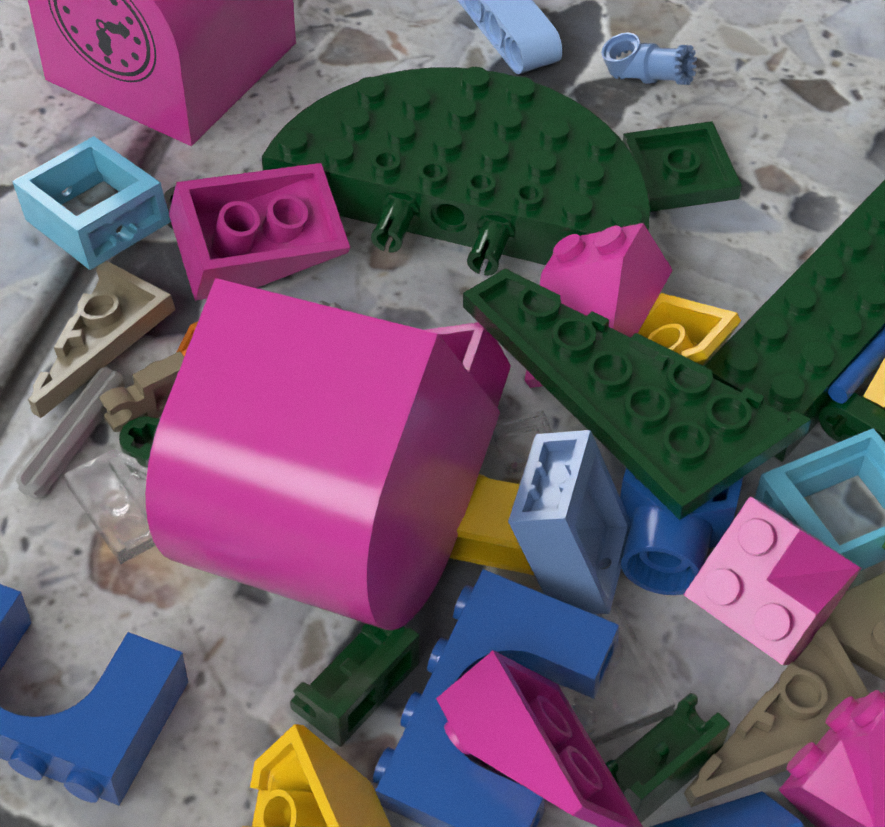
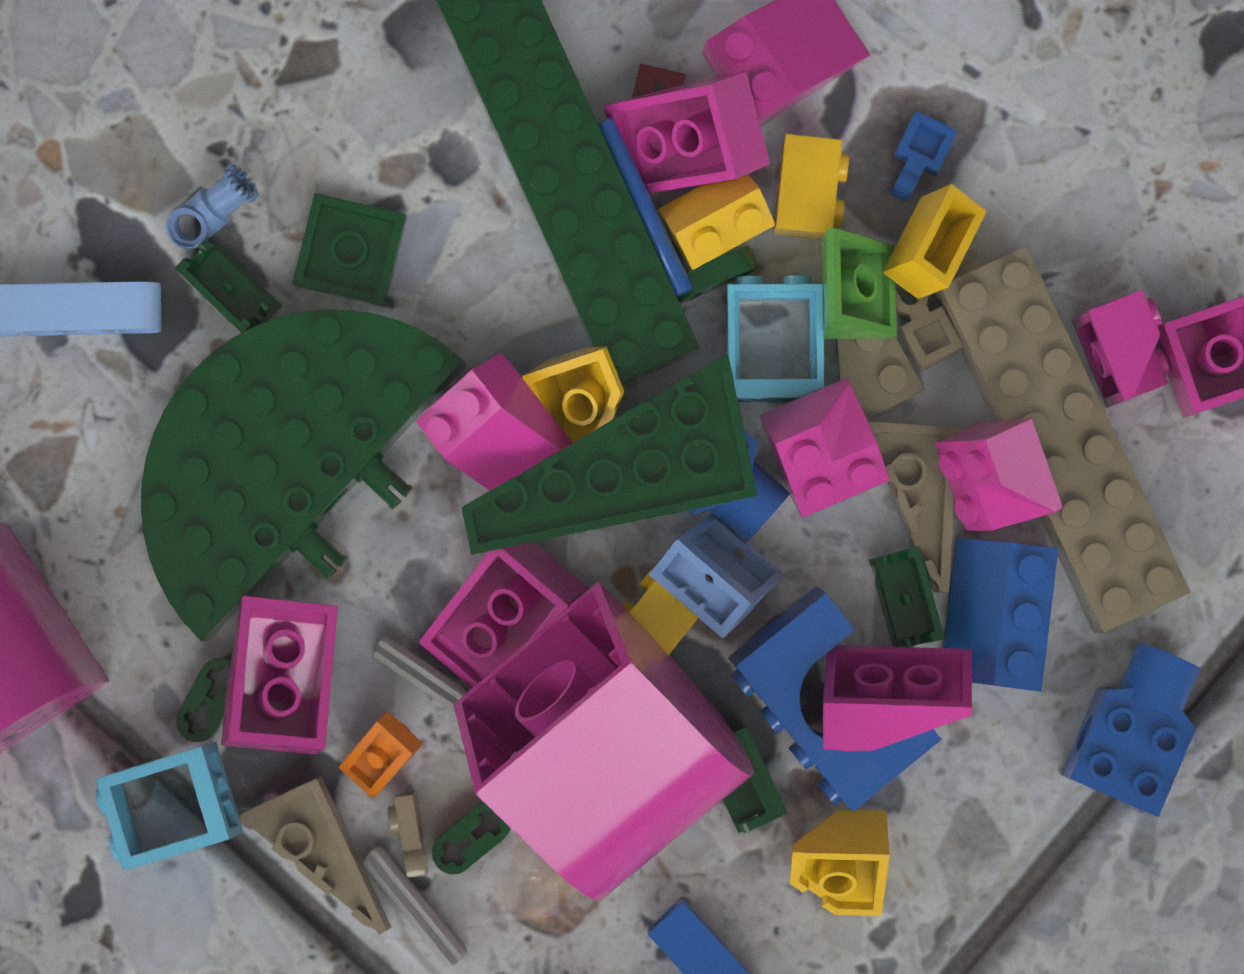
camera: 65 degrees left, 35 degrees up
(592, 83) = (228, 286): none -> dark green hinge

